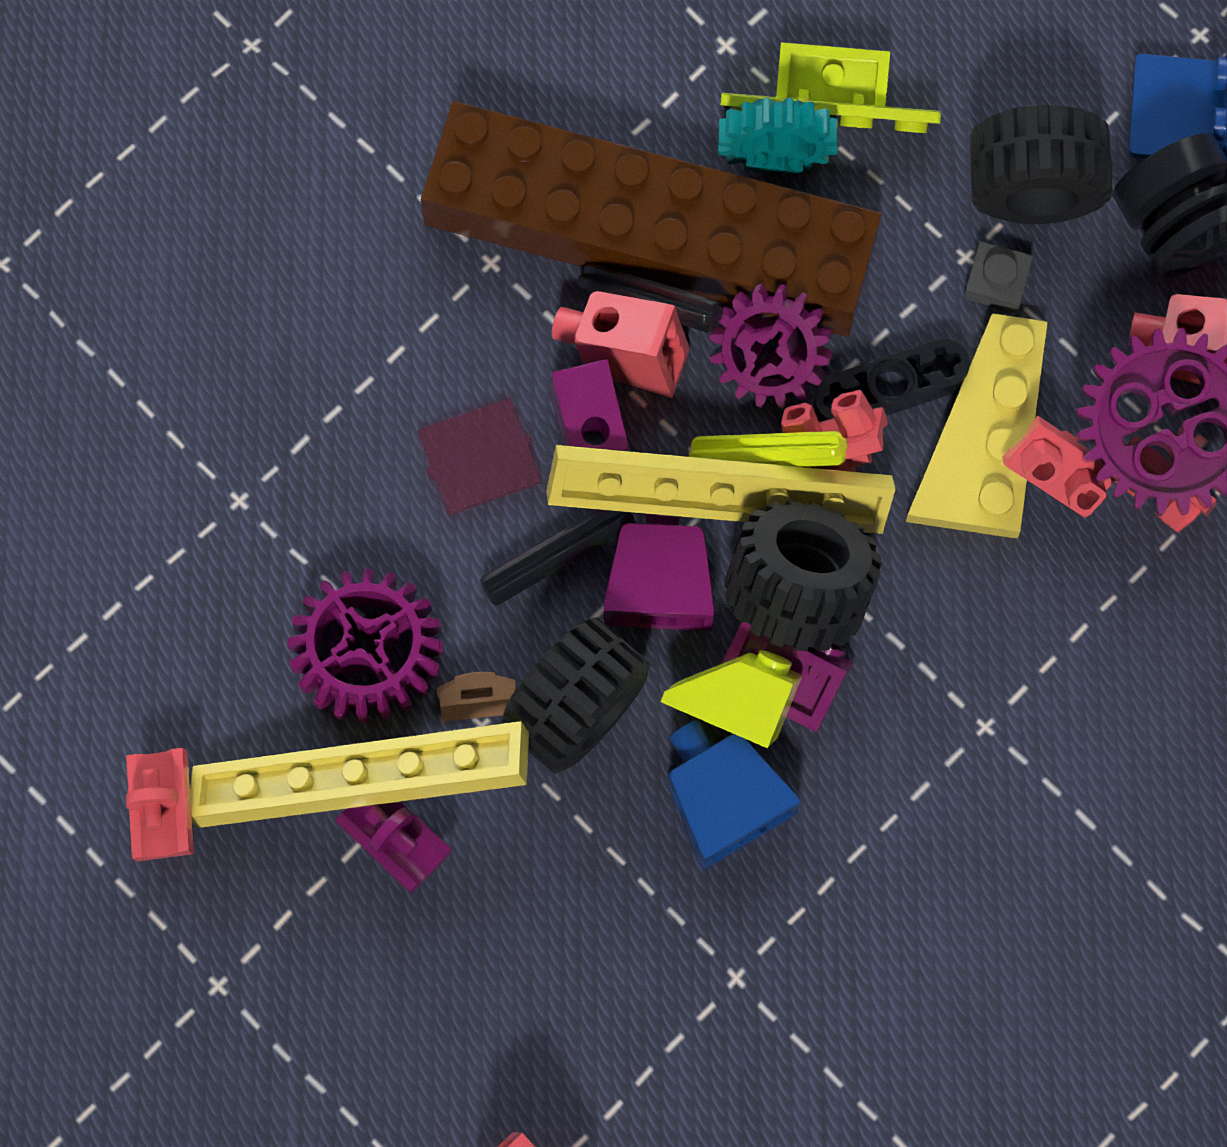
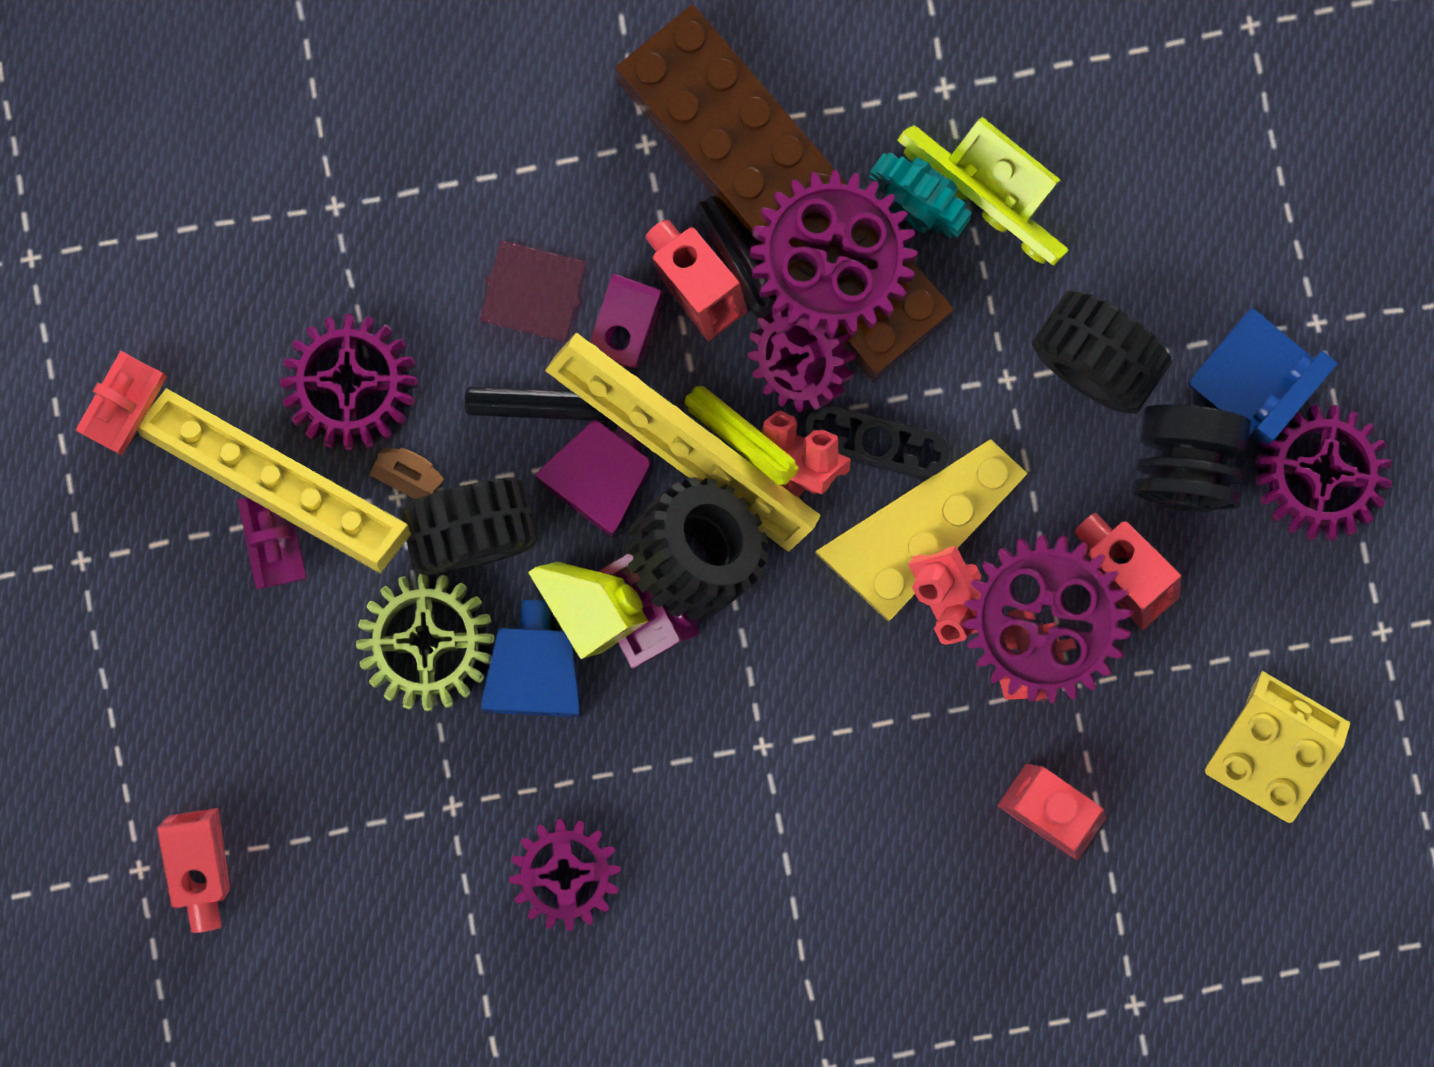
camera: 30 degrees right, 10 degrees up
(576, 796) = (401, 642): none -> yellowish green gear
(759, 268) = (820, 298): none -> magenta gear
(873, 945) = (563, 851): none -> magenta gear
(998, 277) = (1018, 412): dark grey plate -> none

